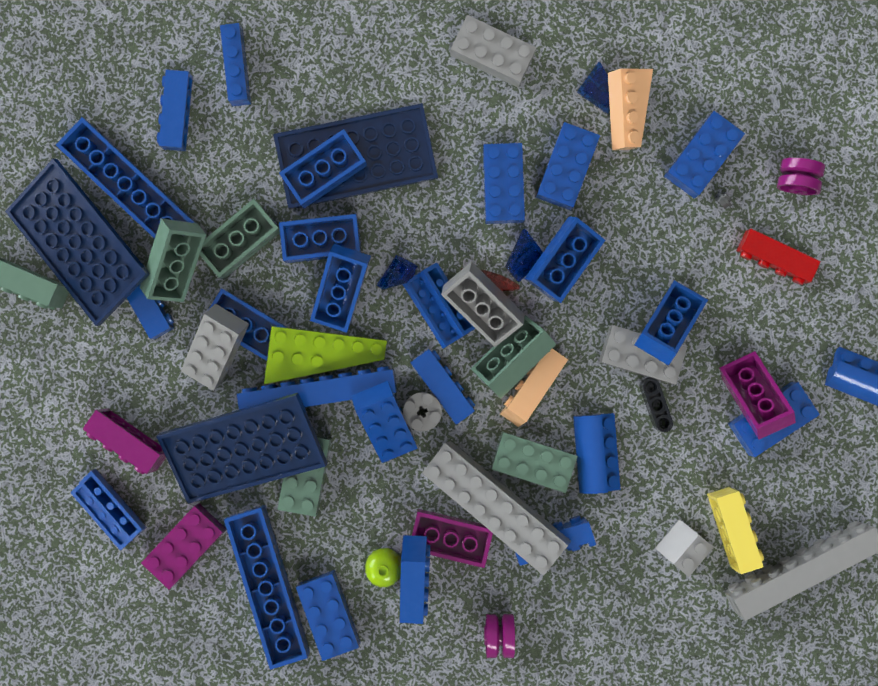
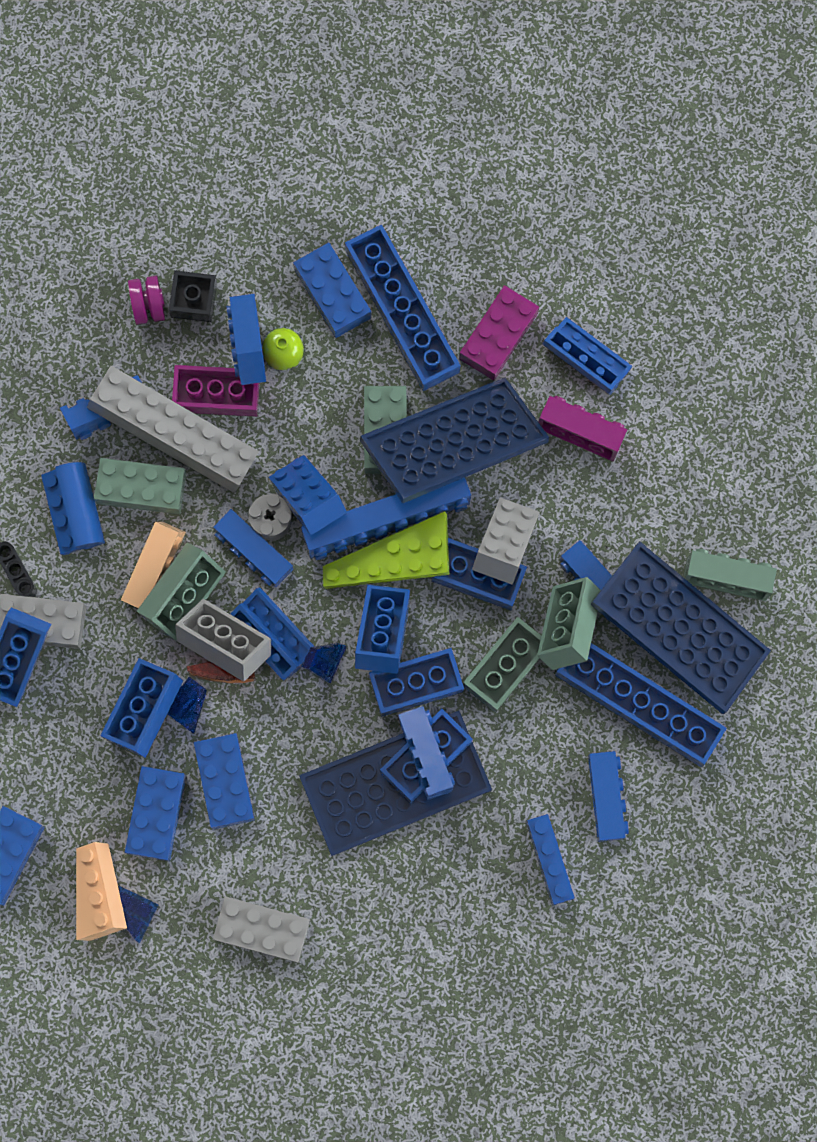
camera: 160 degrees right, 10 degrees down
(321, 162) = (425, 752): none -> wedge
(456, 632) = (193, 296): none -> black brick

